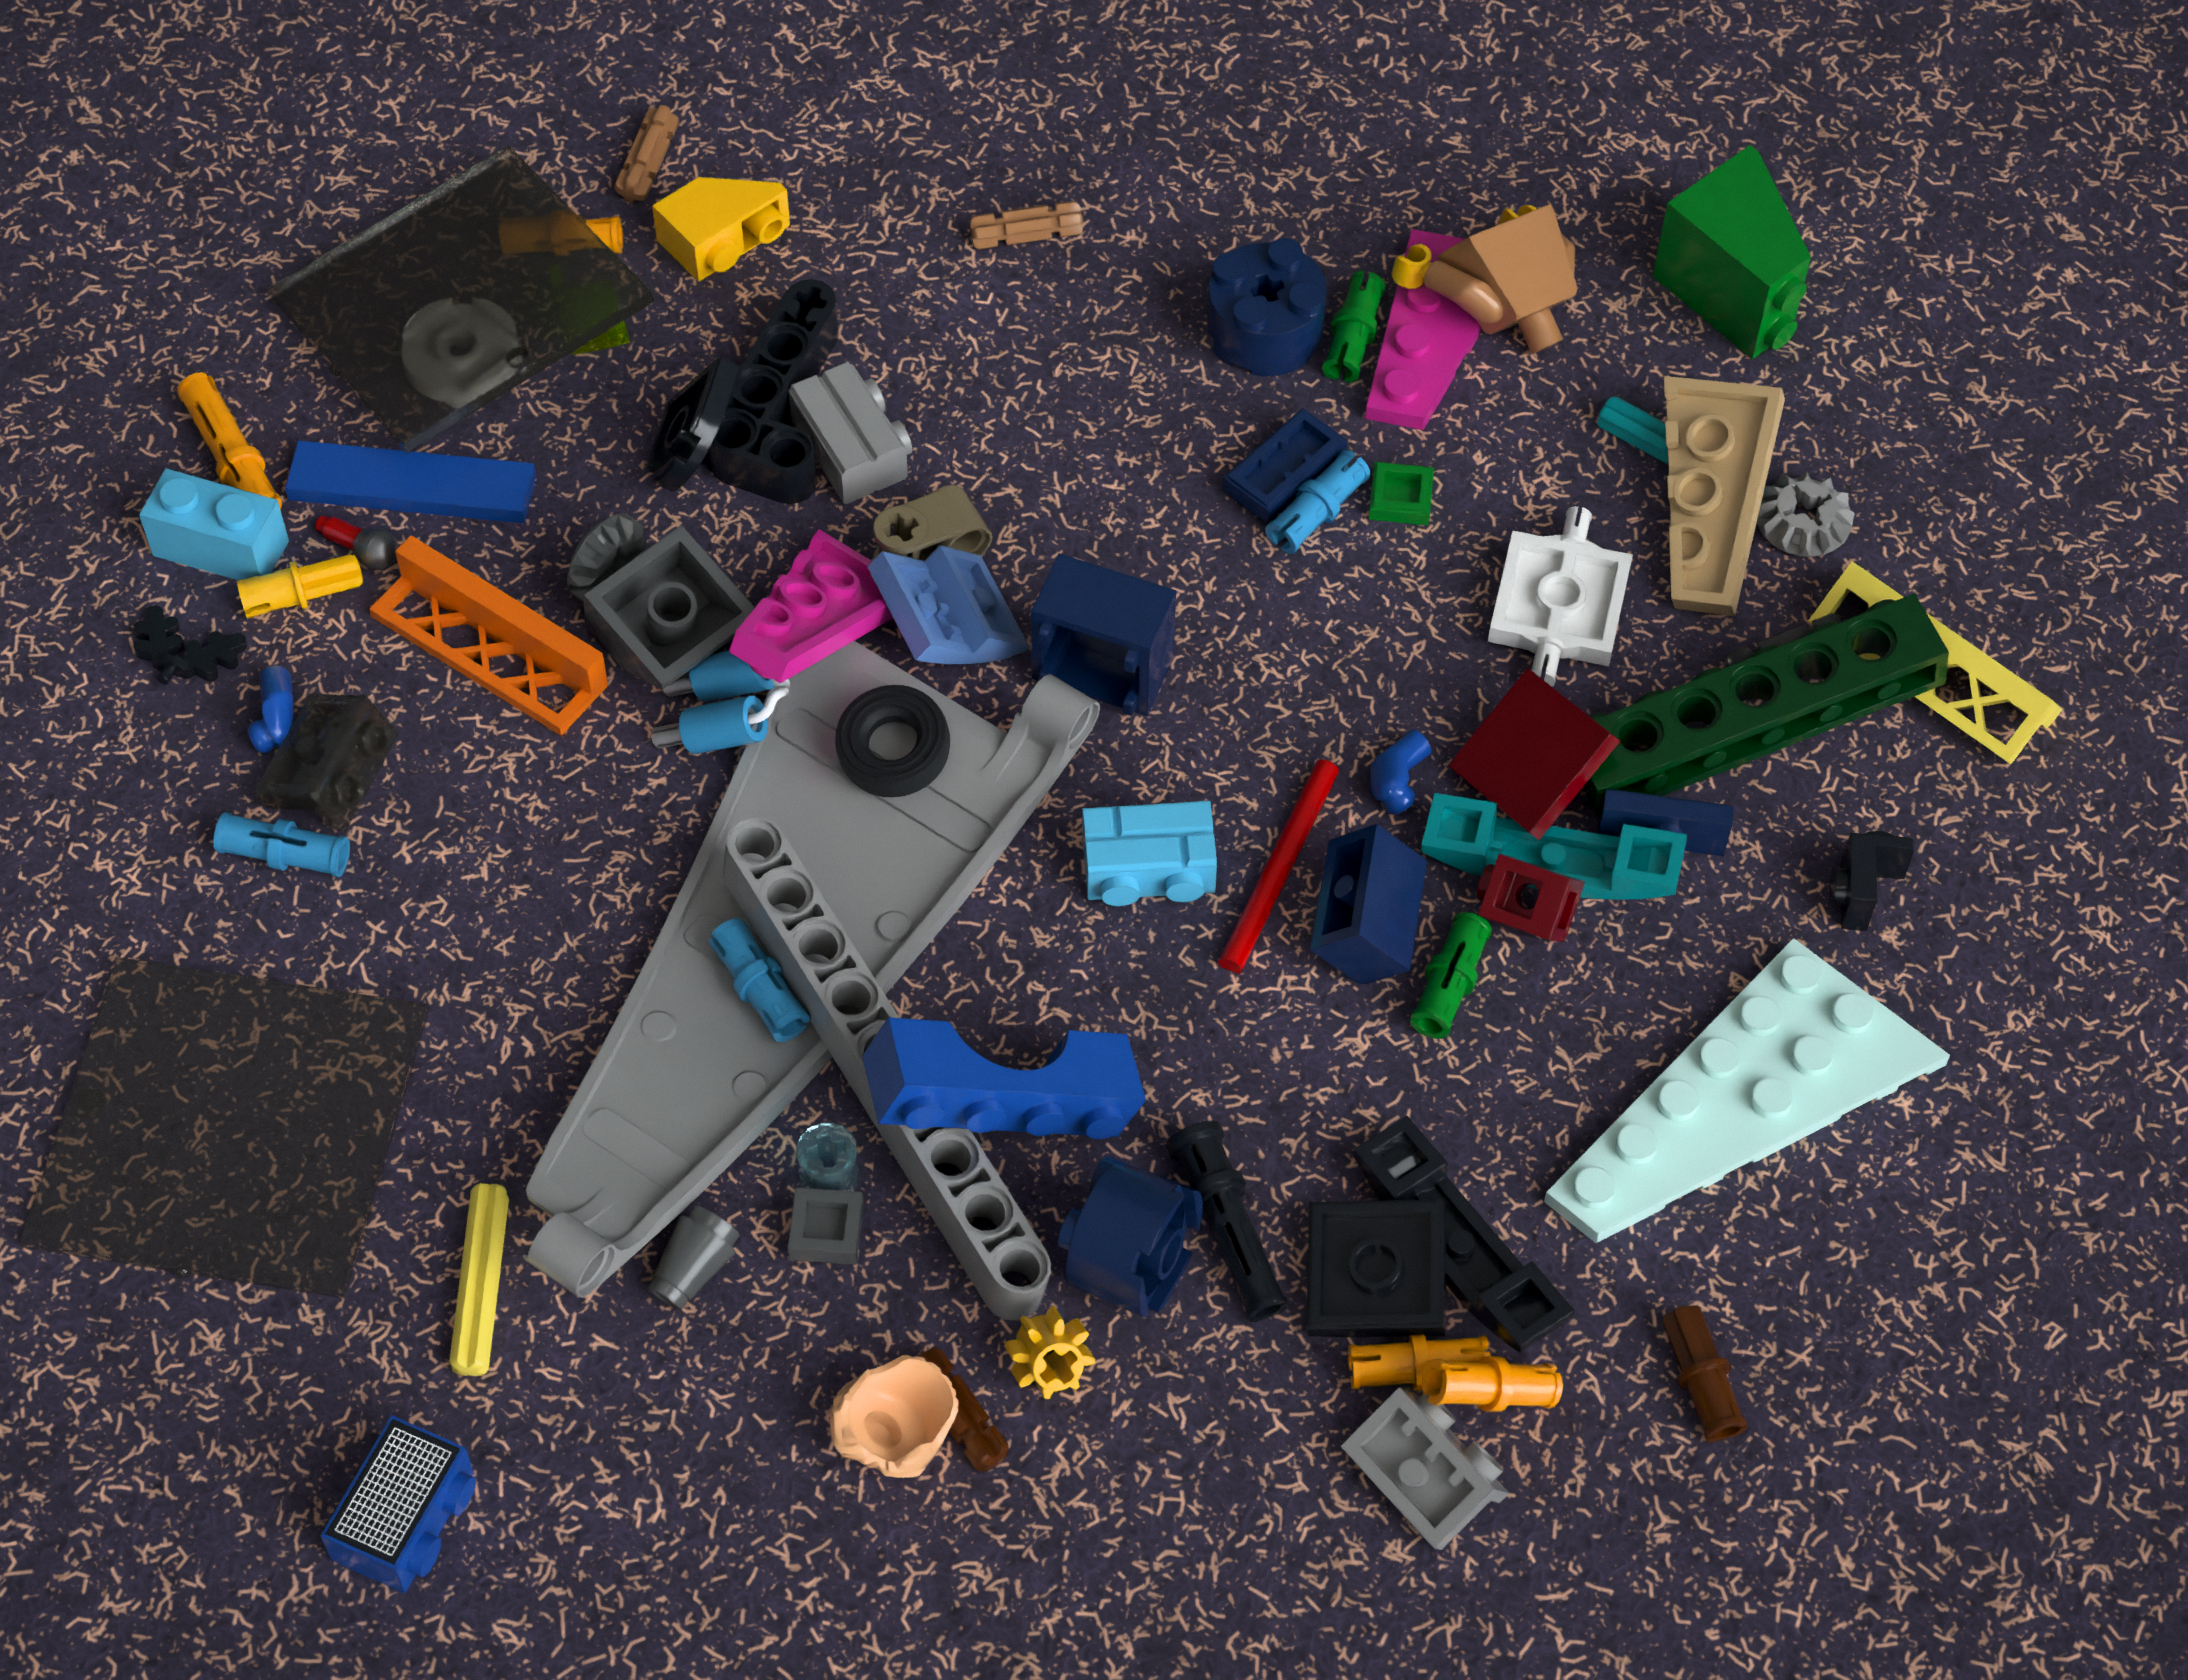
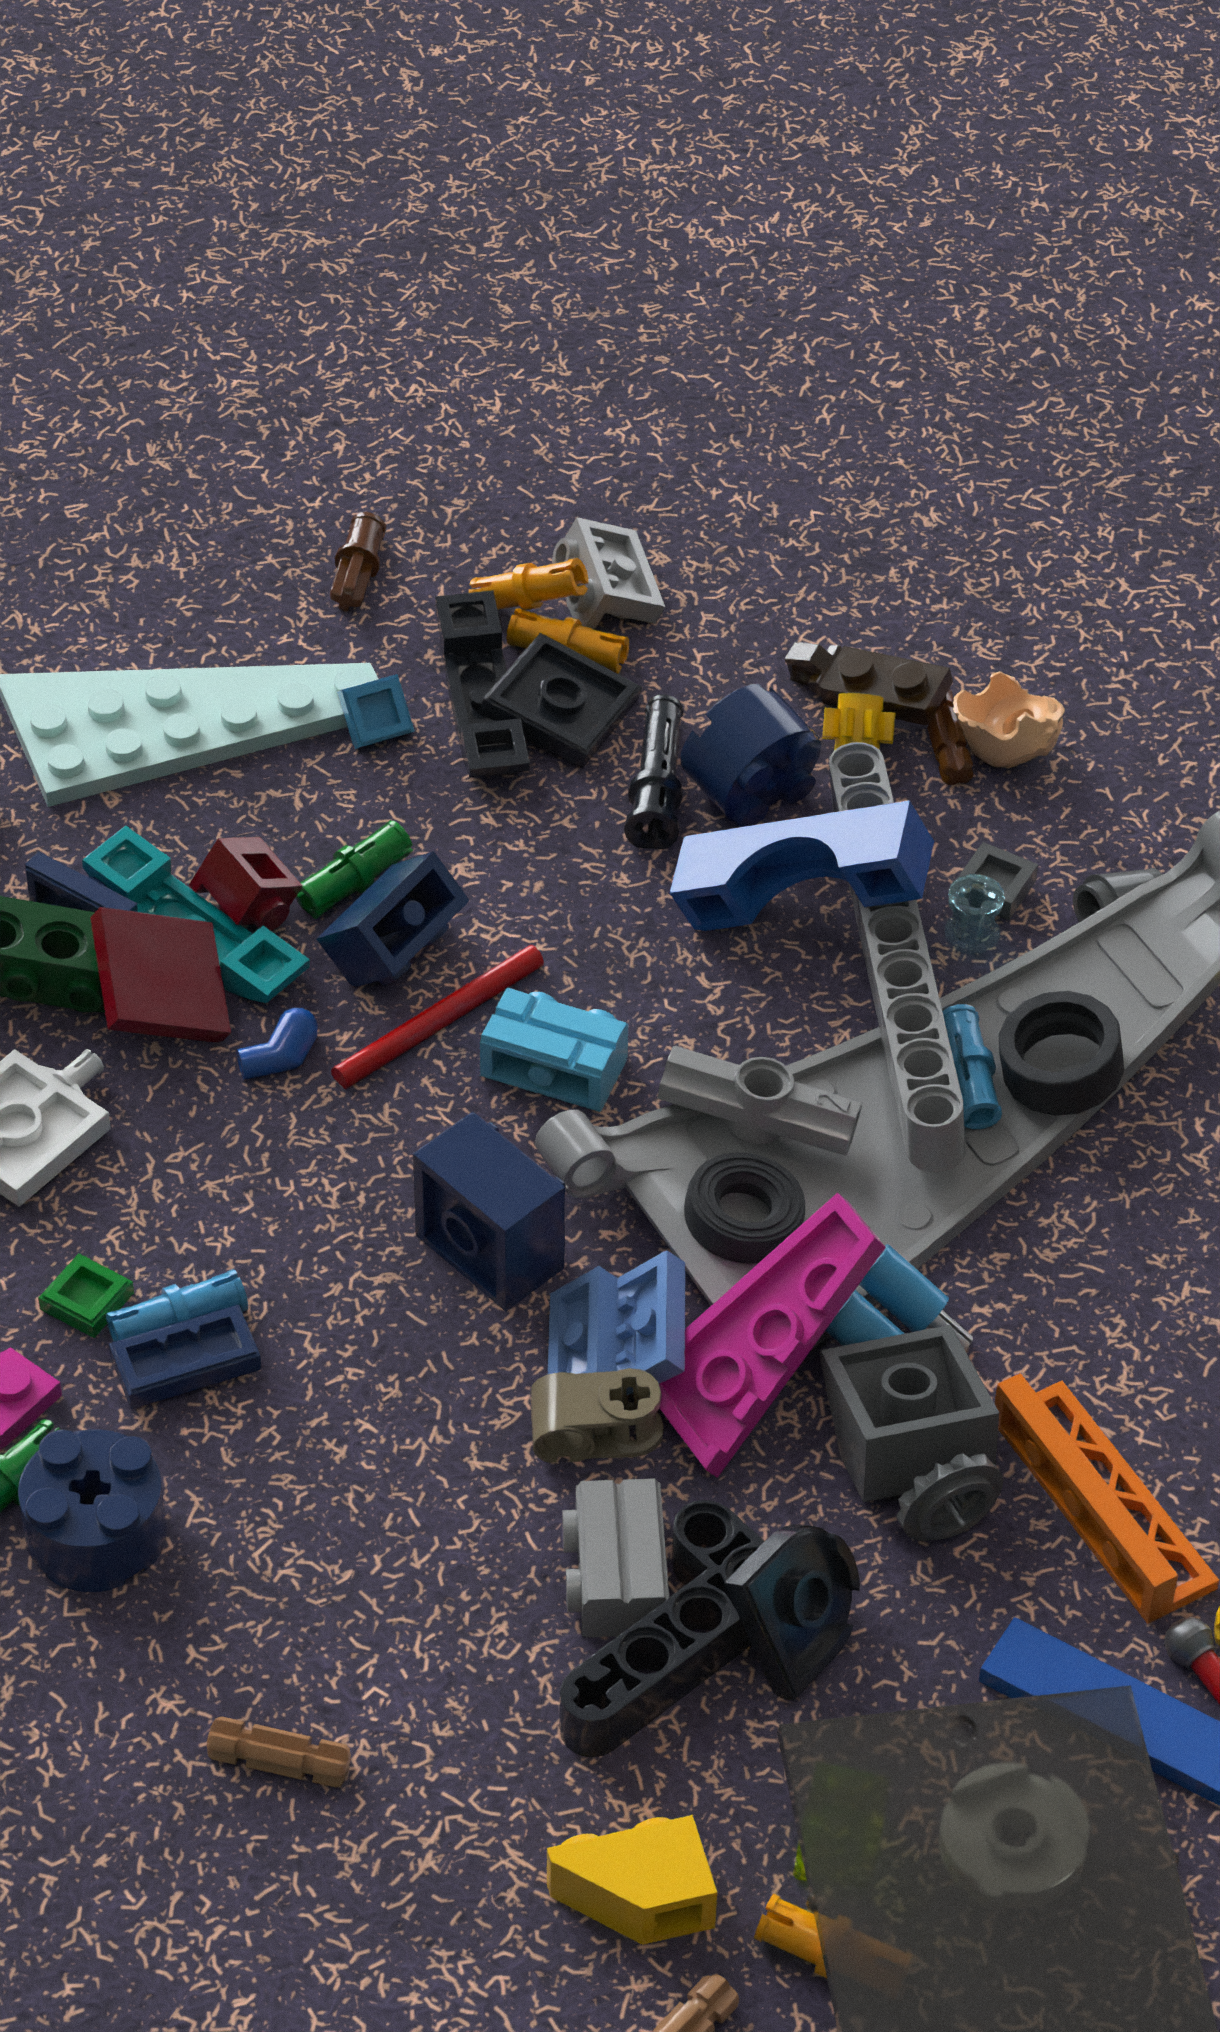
camera: 155 degrees left, 10 degrees down
(672, 962) = (1063, 1090): none -> black tyre
(889, 847) = (759, 1100): none -> light grey piece
(1067, 1427) = (907, 686): none -> dark brown hinge
(1549, 1166) = (375, 711): none -> dark azure tile

